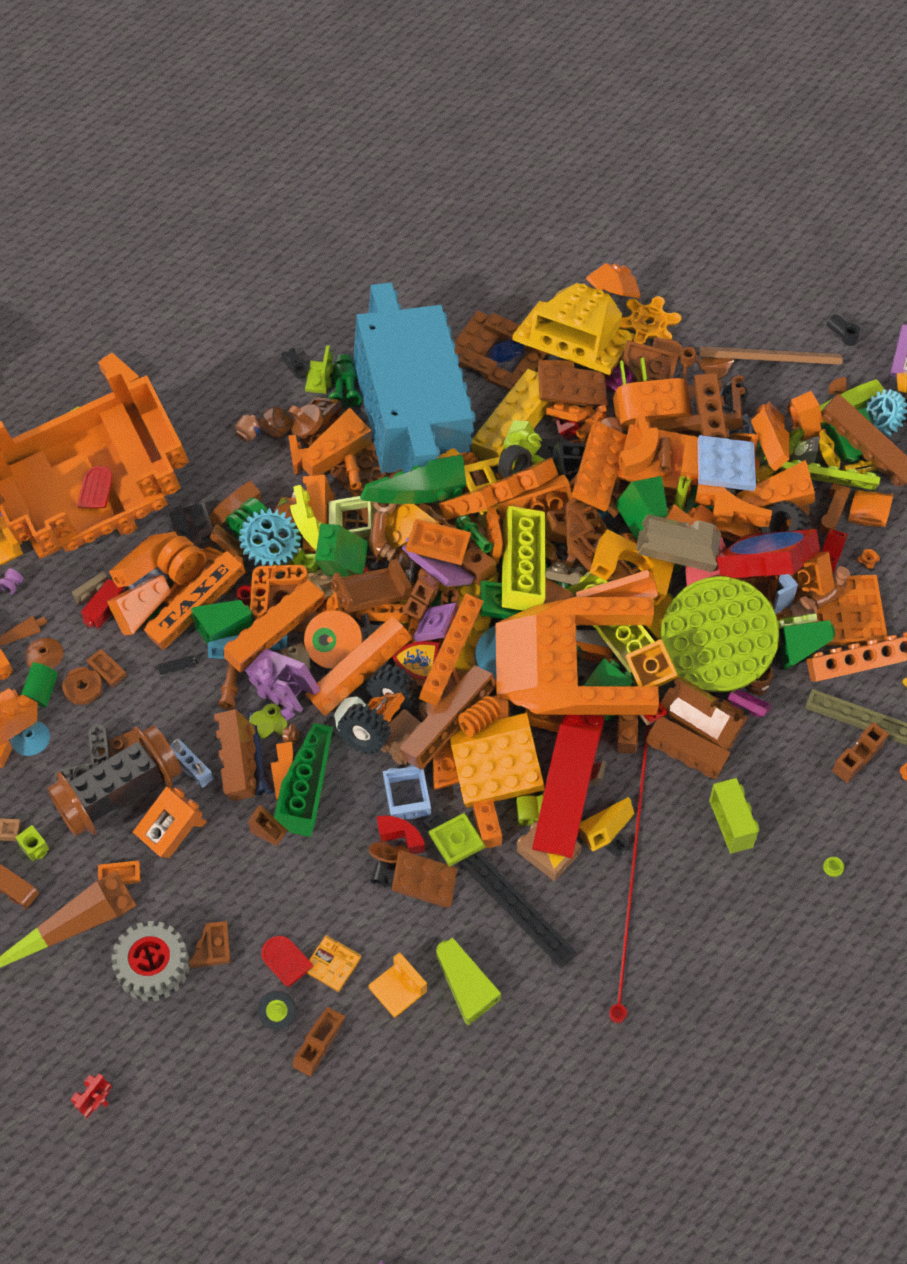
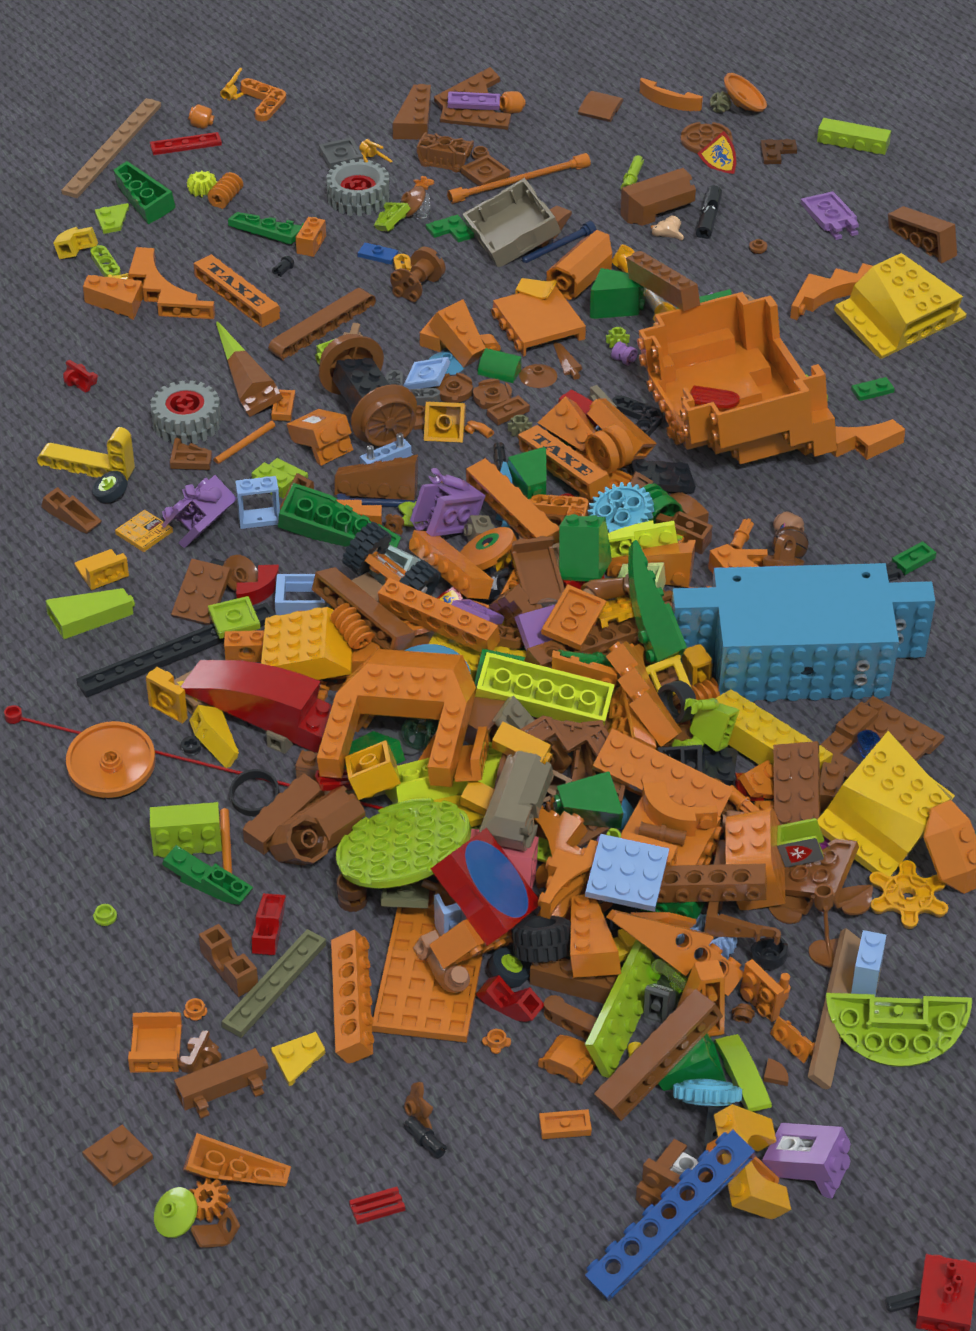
camera: 100 degrees right, 15 degrees down
(43, 387) = (872, 389): none -> green plate
(58, 747) = (427, 373): none -> light blue tile
(67, 714) = (450, 393): none -> dark orange plate
(101, 556) = (627, 405): none -> black beam
(132, 652) = (519, 424): none -> olive gear
(132, 711) = (444, 421): none -> light orange slope
(133, 690) = (480, 427): none -> orange arm
(180, 900) = (244, 442): none -> orange bar
(234, 853) = (282, 470): none -> lime plate
(244, 1002) = (92, 463): none -> yellow beam
(262, 462) = (742, 534): none -> orange axle
(271, 341) = (914, 557): none -> green plate
(273, 491) = (690, 529): none -> dark orange hinge
(285, 960) = (156, 500): red window -> none
(294, 851) = (251, 518): none -> light blue window
(316, 904) = (200, 507): none -> medium lavender torso
(572, 872) = (165, 695): none -> light orange plate
(656, 793) = (246, 775): none -> black tyre
(662, 903) = (110, 759): none -> orange dish
(706, 796) = (226, 841): none -> orange bar
(740, 329) = (868, 963): none -> light blue brick
(755, 705) = (318, 874): magenta plate -> none
(773, 791) = (207, 879): none -> green slope
(776, 314) = (898, 1029): none -> lime brick
(780, 387) = (764, 991): none -> orange plate
(796, 620) = (409, 922): lime wing -> none
(803, 640) = (381, 923): green slope -> none
(805, 736) = (268, 924): none -> red slope
(808, 375) = (792, 1039): none -> orange hinge
(827, 449) = (656, 1016): yellow slope -> none
(847, 331) = (867, 1097): black piece -> none

